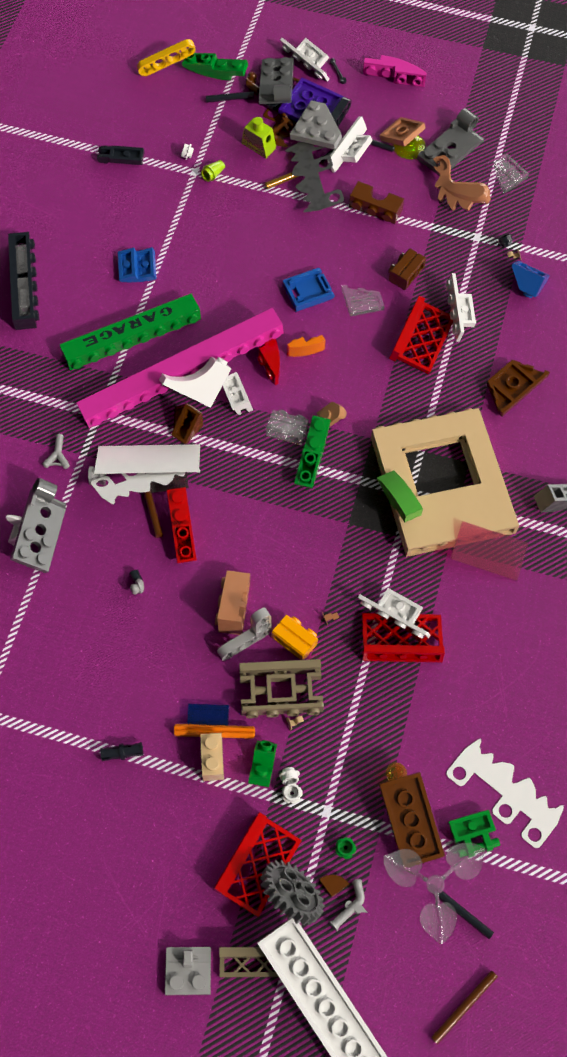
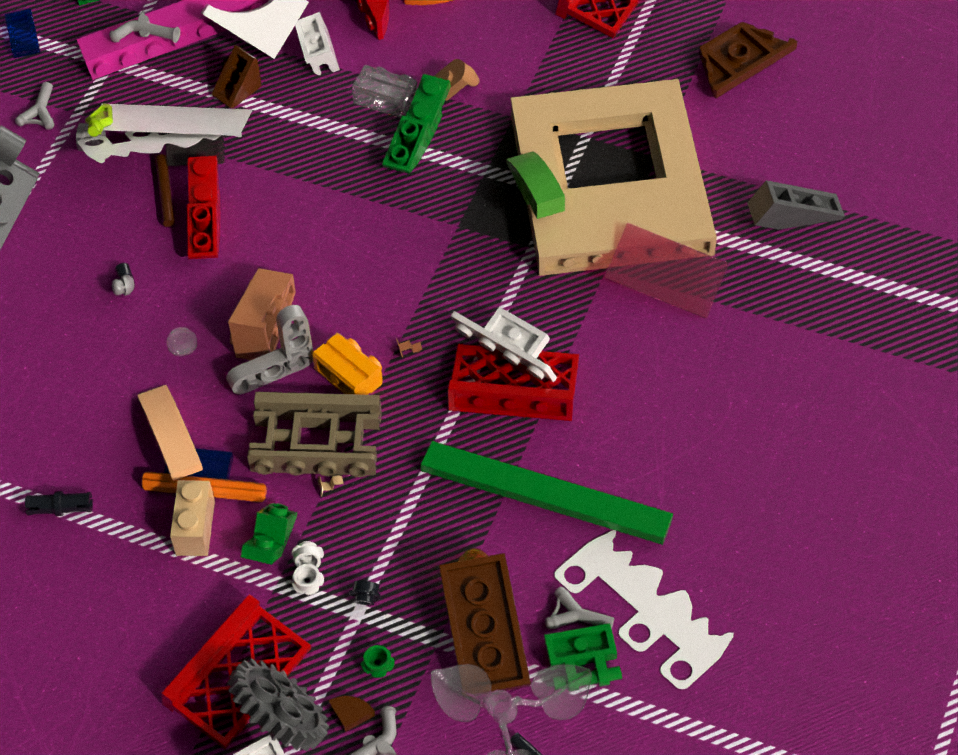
camera: 10 degrees right, 10 degrees down
(35, 395) = (22, 33): none -> clear blue tile
(103, 465) = (99, 120): none -> lime piece
(123, 394) = (144, 28): none -> light grey piece
(182, 625) = (181, 341): none -> clear plate
(186, 694) = (170, 432): none -> light nougat slope
(330, 799) = (365, 592): none -> black plate
(434, 716) = (547, 492): none -> green tile
(464, 801) = (574, 614): none -> light grey piece

